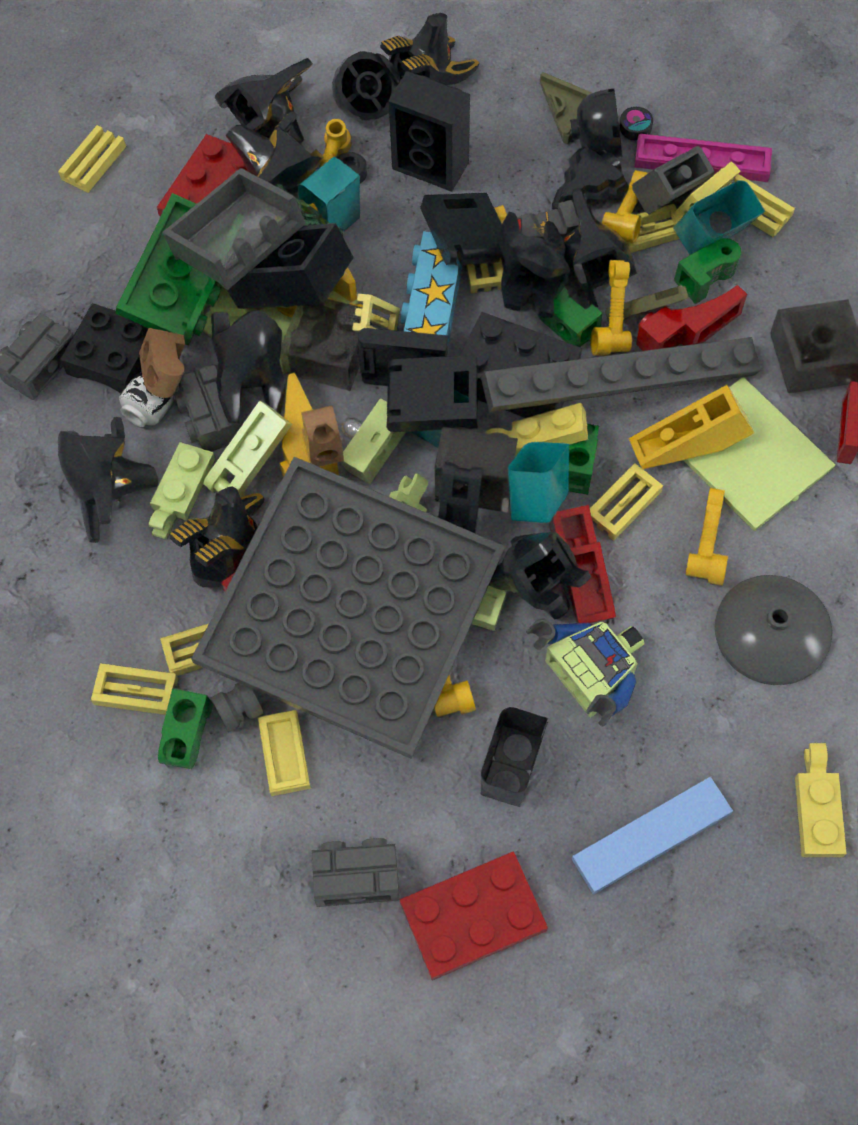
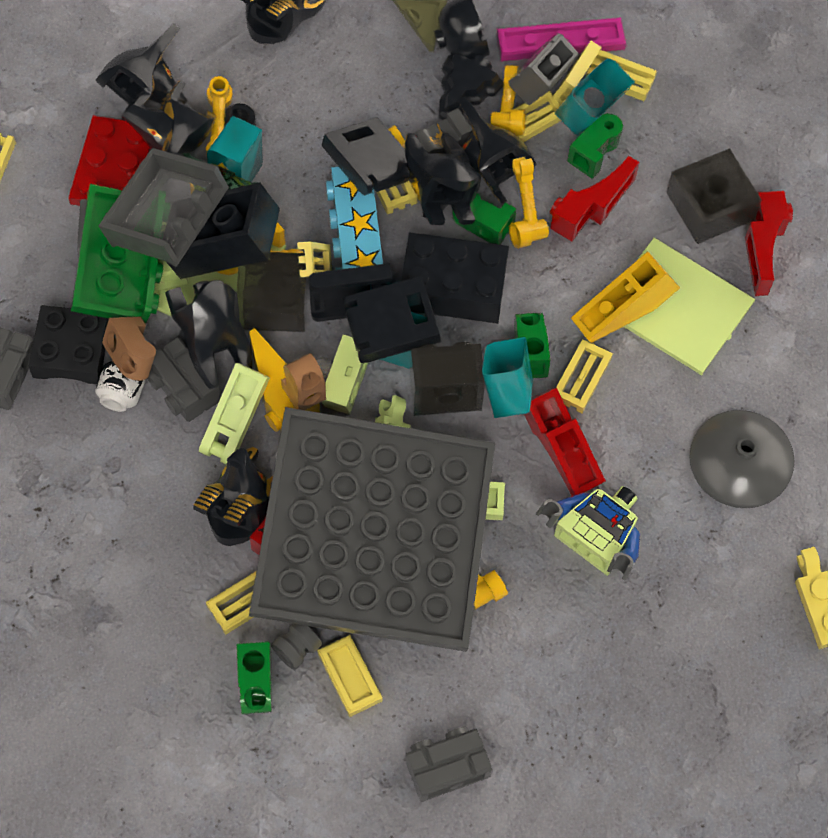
camera: 20 degrees left, 0 degrees up
(100, 473) = (103, 465): black piece -> none
(170, 680) = (199, 667): light yellow tile -> none
(179, 487) = (177, 458): yellowish green plate -> none
(364, 85) = (234, 38): black cylinder -> none
(429, 130) = (311, 71): black brick -> none
(457, 505) = (445, 416): black plate -> none
(473, 915) = (558, 772): red plate -> none
(512, 722) = (557, 596): black piece -> none
(538, 570) = (530, 455): black piece -> none
(556, 426) = (503, 324): light yellow plate -> none
(619, 374) = (548, 262): dark grey plate -> none
(635, 121) = (492, 18): tile -> none
(651, 835) = (689, 664): light blue tile -> none
(652, 301) = (557, 186): olive tile -> none
(706, 563) = (668, 414): yellow brick -> none

